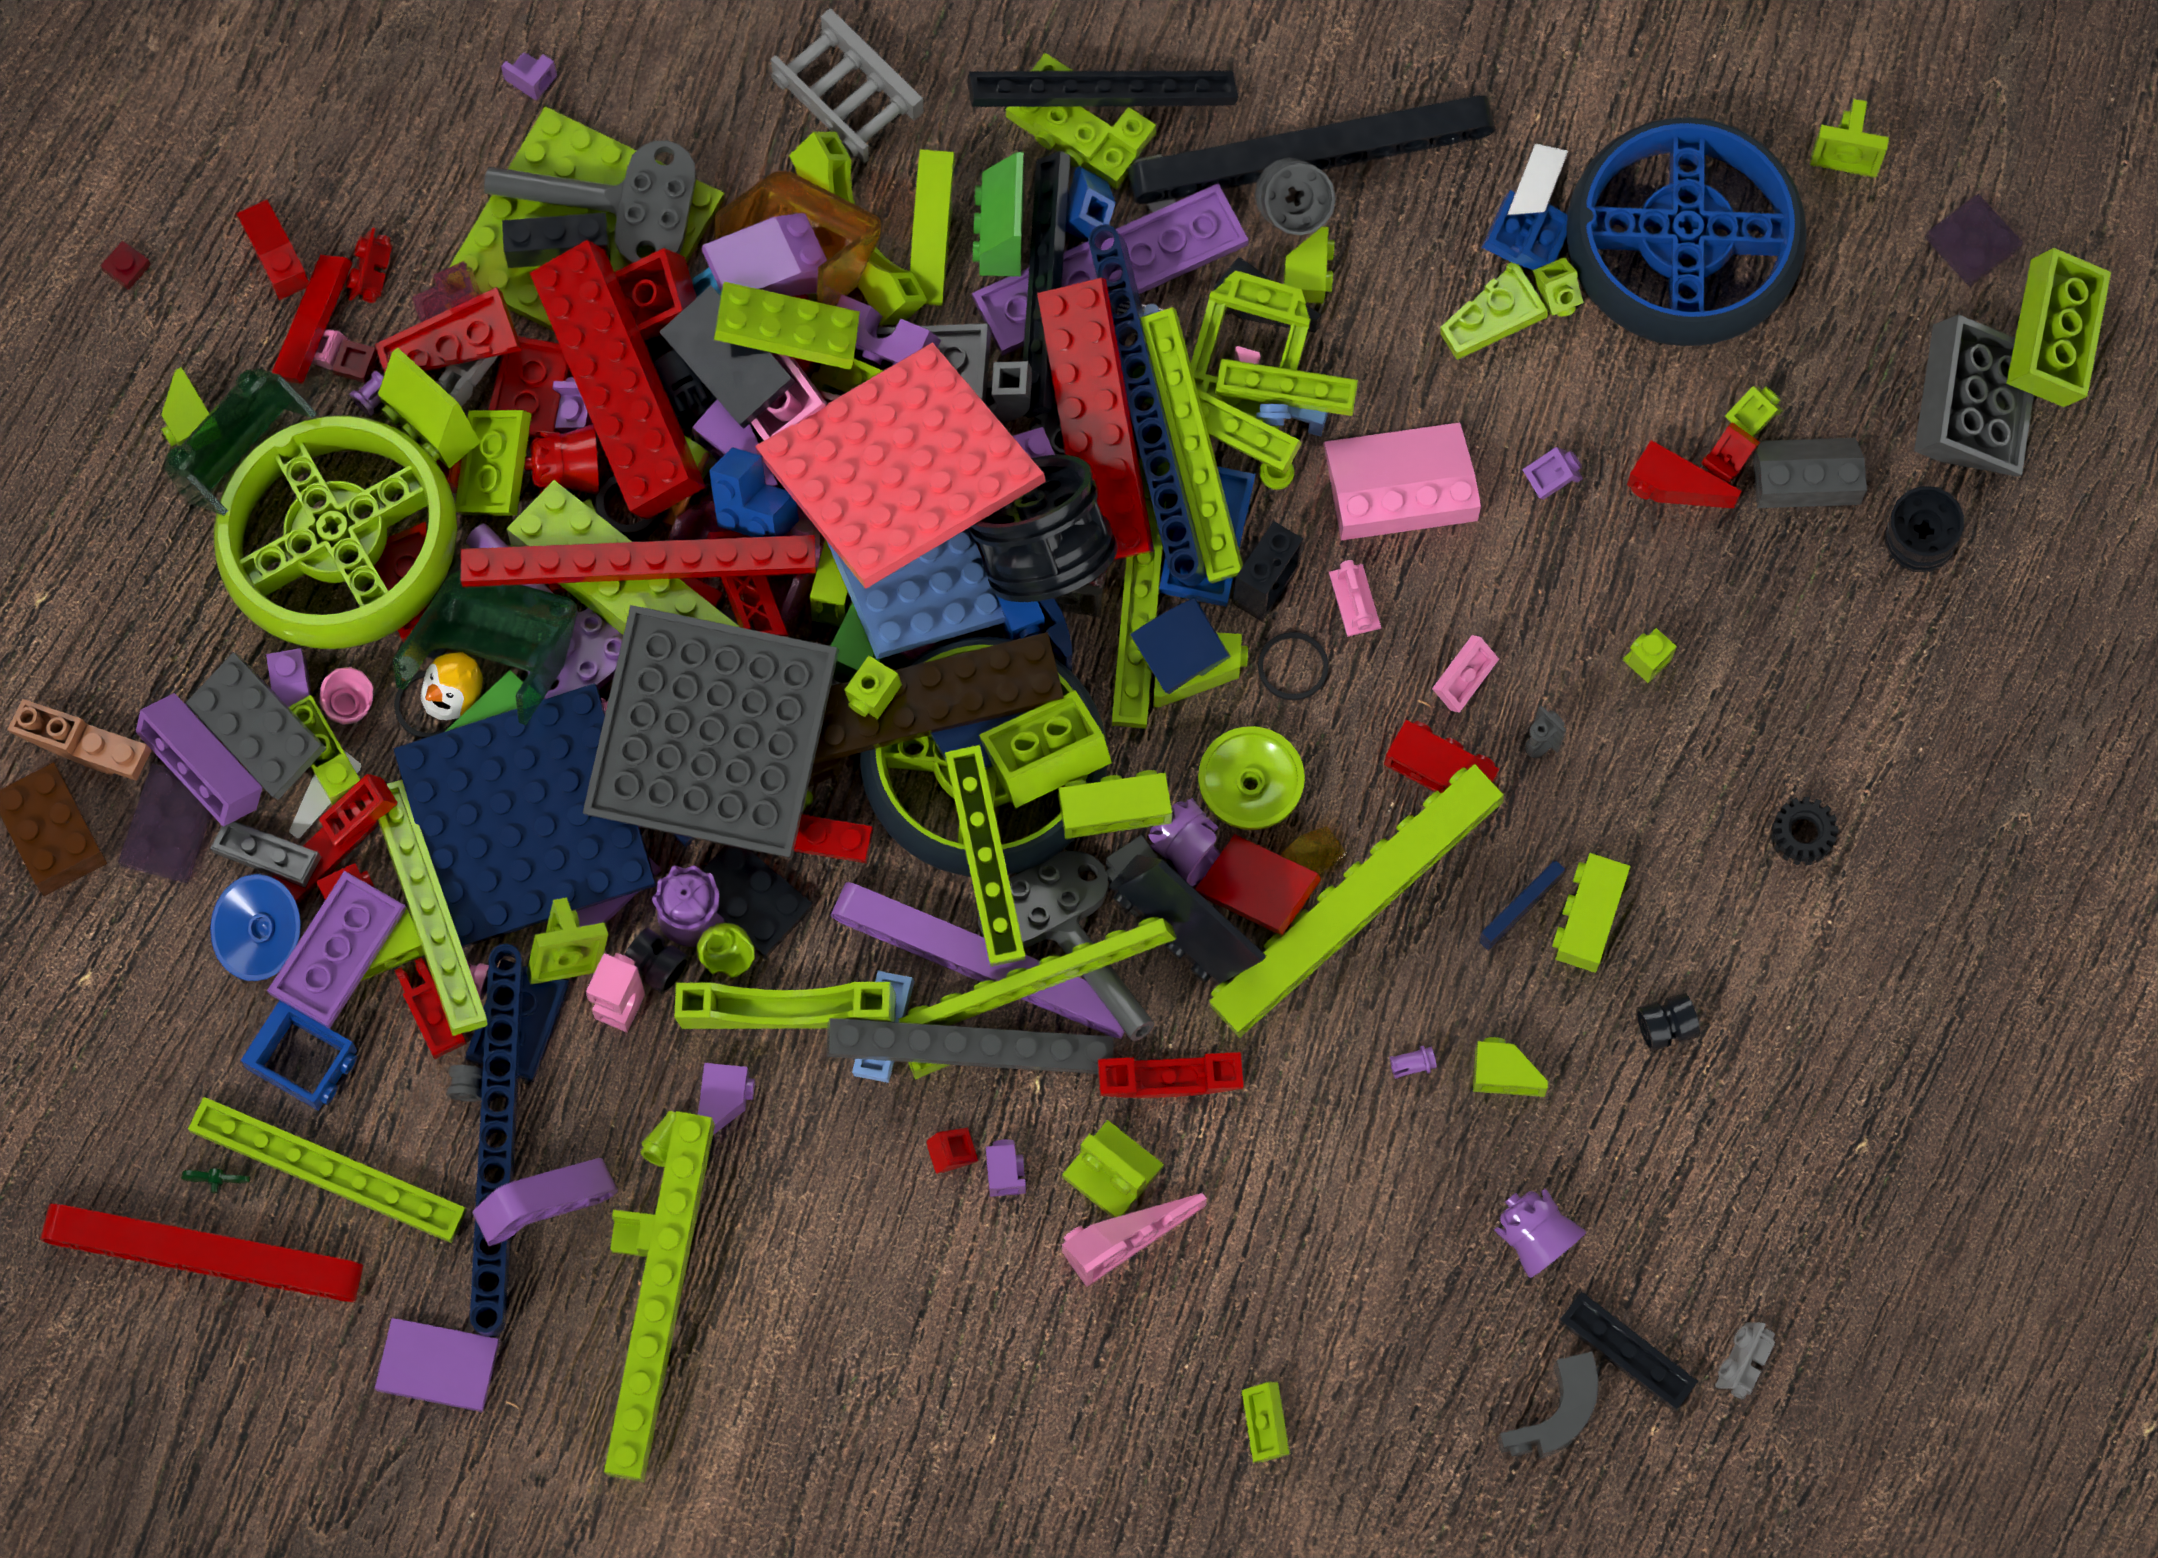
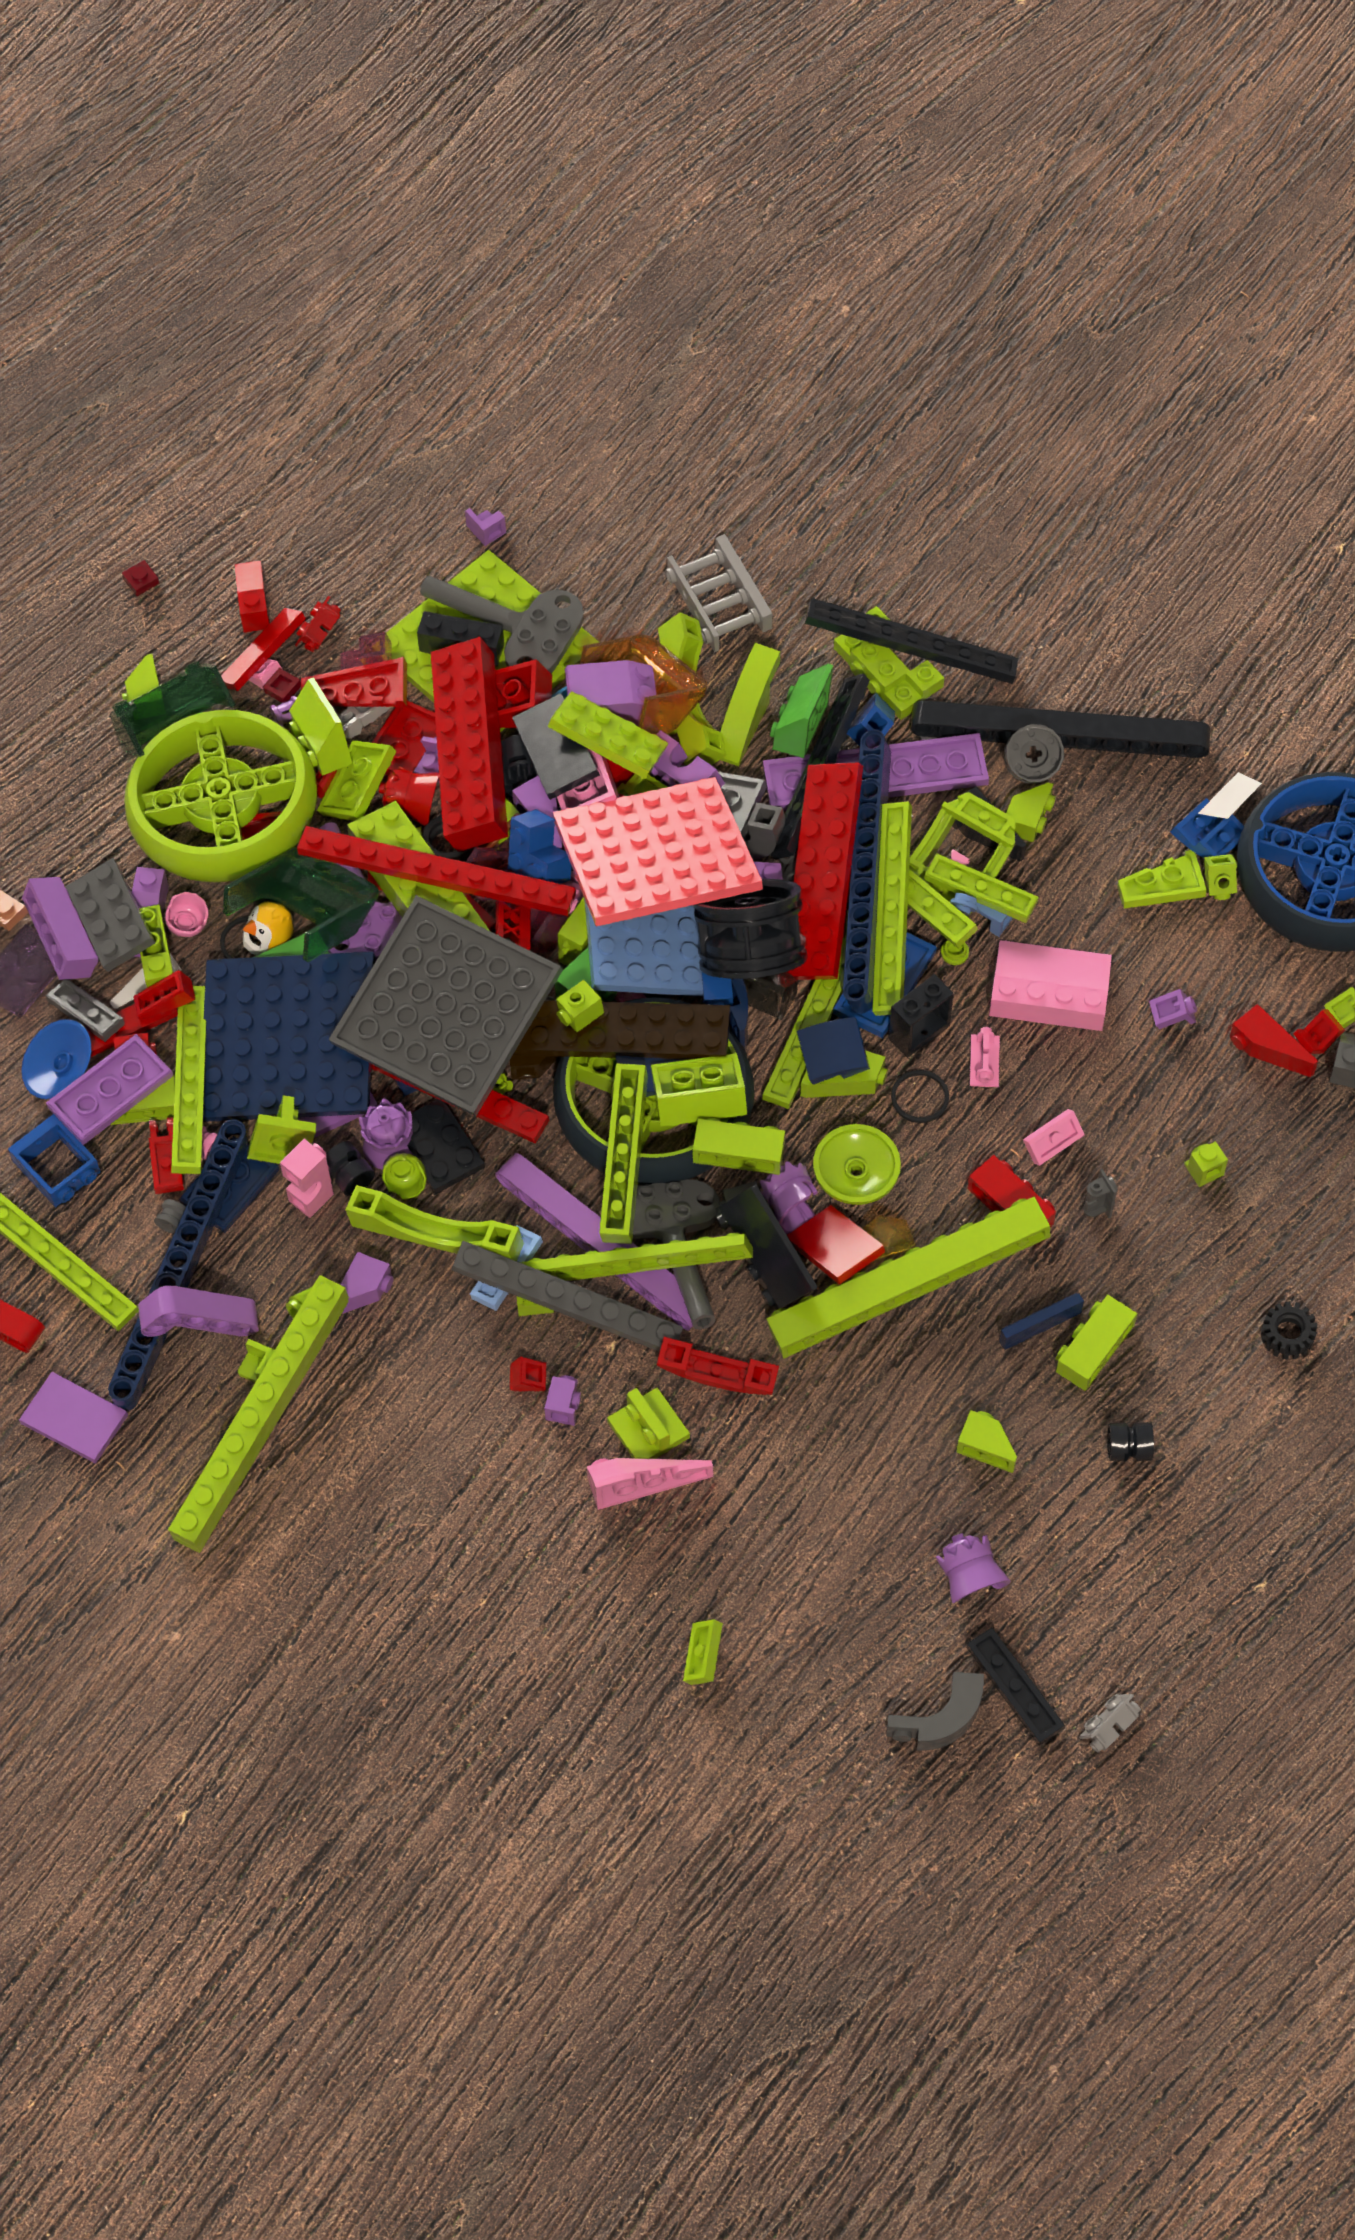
camera: 20 degrees right, 10 degrees down
(1413, 1062) = (915, 1414): medium lavender pin -> none

